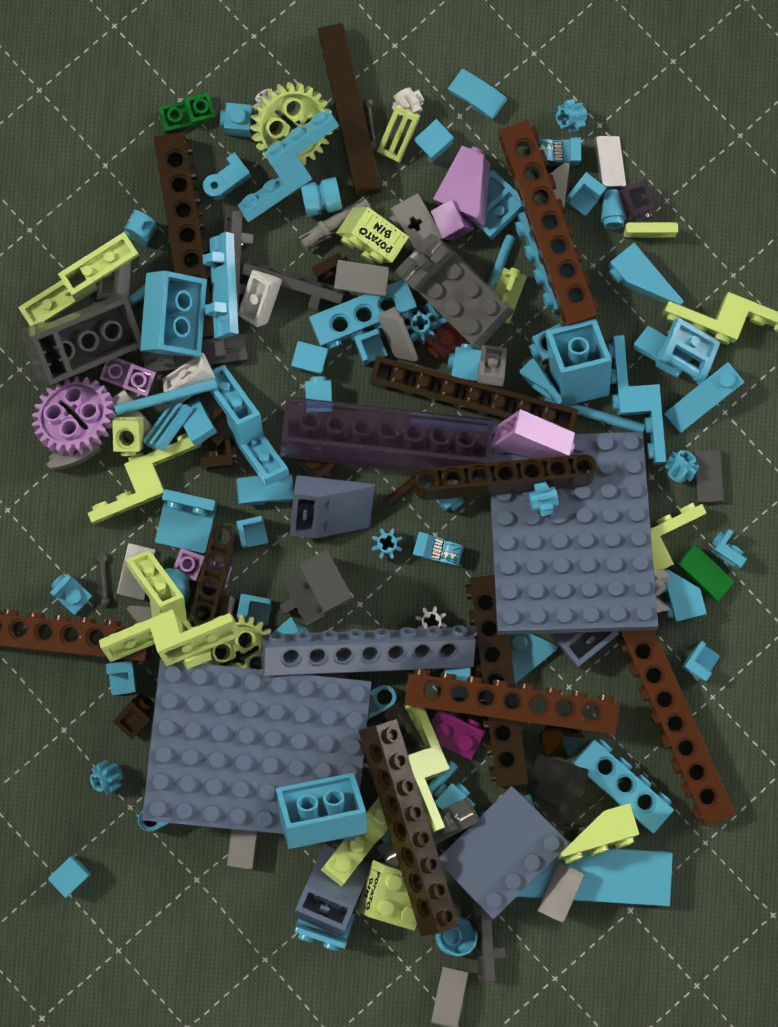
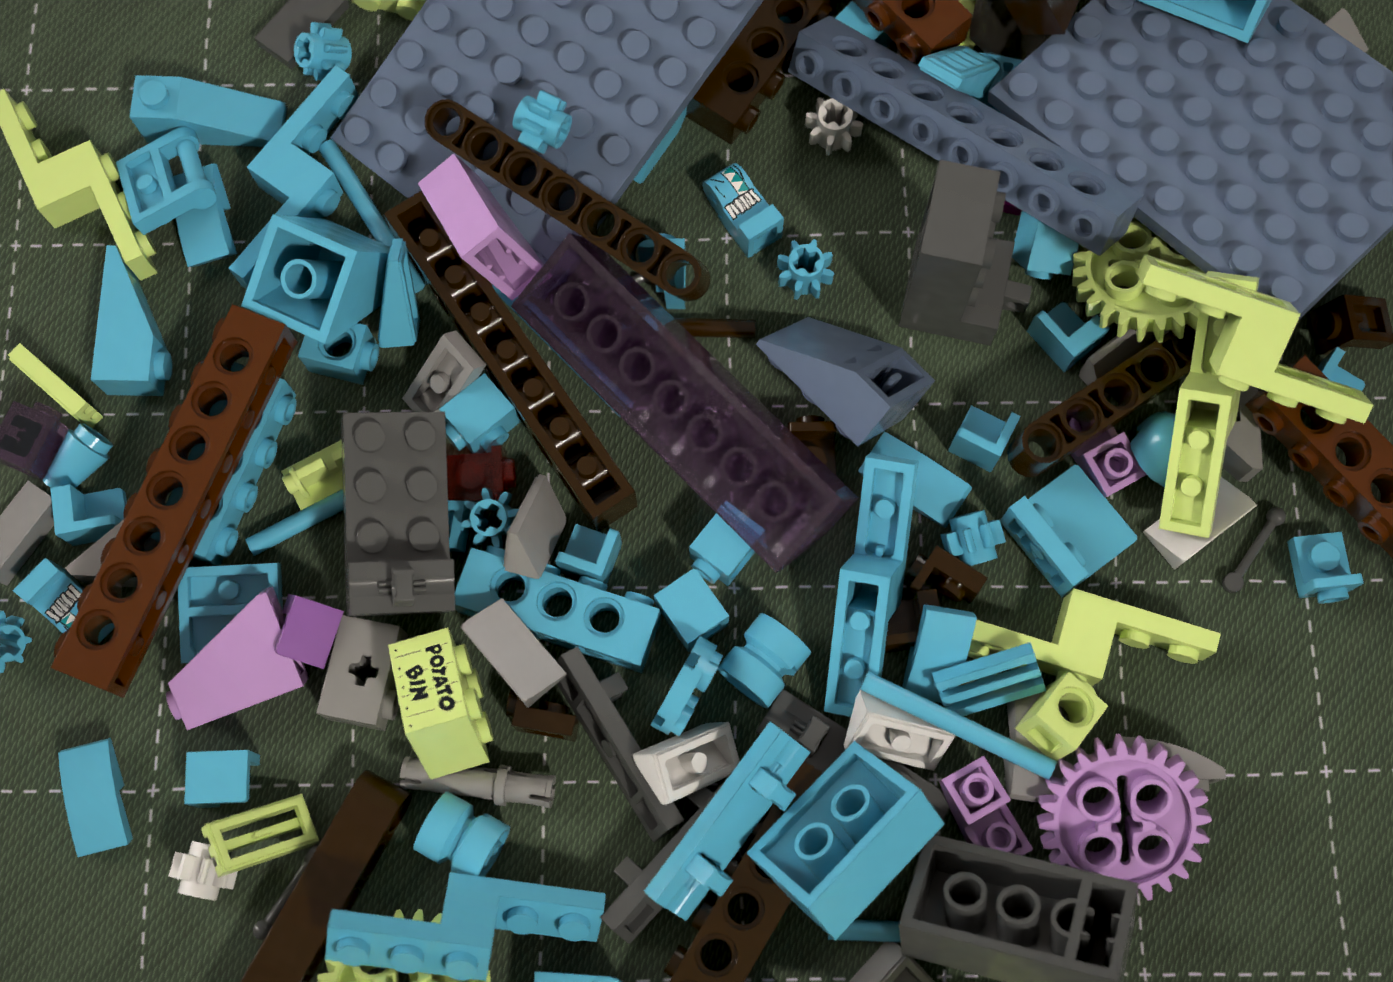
camera: 130 degrees left, 10 degrees down
(221, 482) = (973, 537): none -> medium azure gear
(263, 362) = (764, 660): none -> medium azure wheel
(284, 325) = (680, 701): none -> medium azure plate
(389, 678) = (961, 70): none -> medium azure slope

